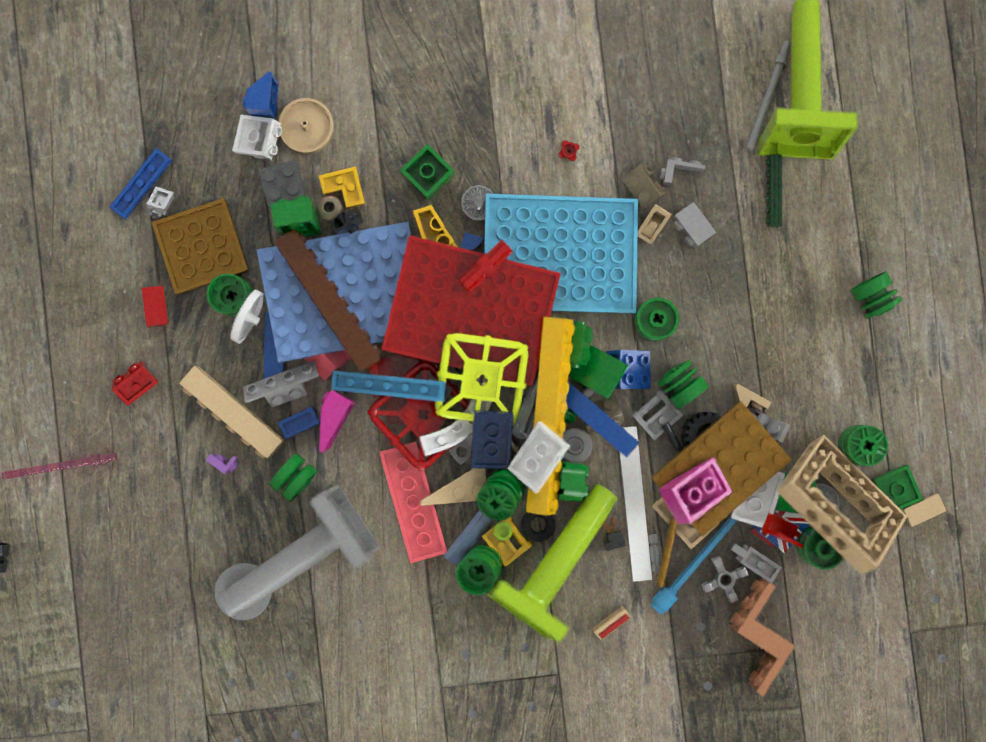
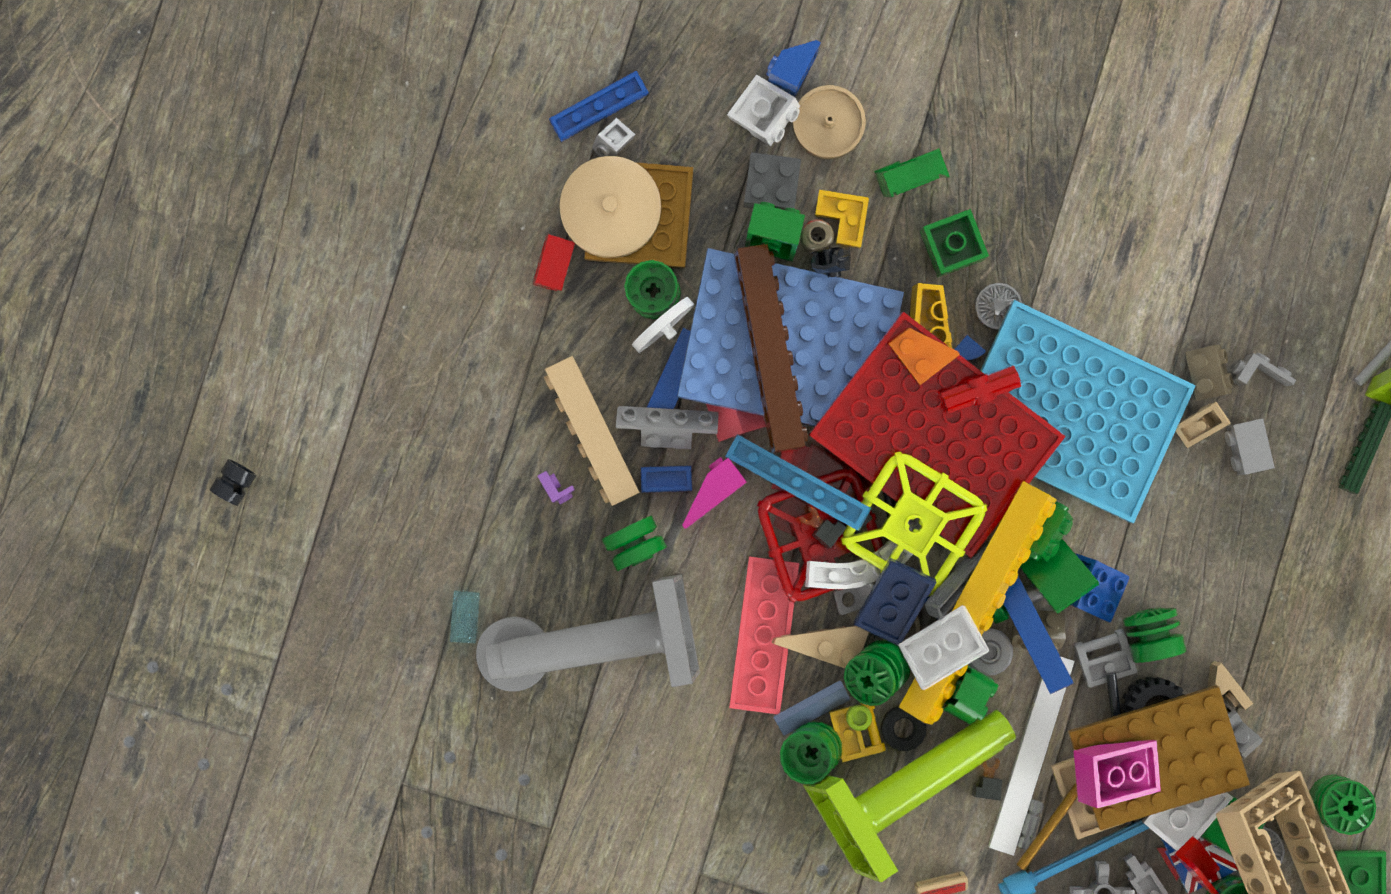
camera: 25 degrees right, 0 degrees up
(95, 460) = (403, 417): clear pink bar -> none
(133, 383) = (488, 344): red bracket -> none
(177, 250) = (610, 207): none -> tan dish
(199, 580) = (464, 617): none -> clear light blue plate
(381, 131) = (911, 174): none -> green piece
(422, 411) = (825, 531): none -> pearl dark grey piece
(434, 259) = (921, 354): none -> orange wing
(574, 147) = (1143, 289): red plate -> none
(664, 311) = (1170, 542): green wheel -> none

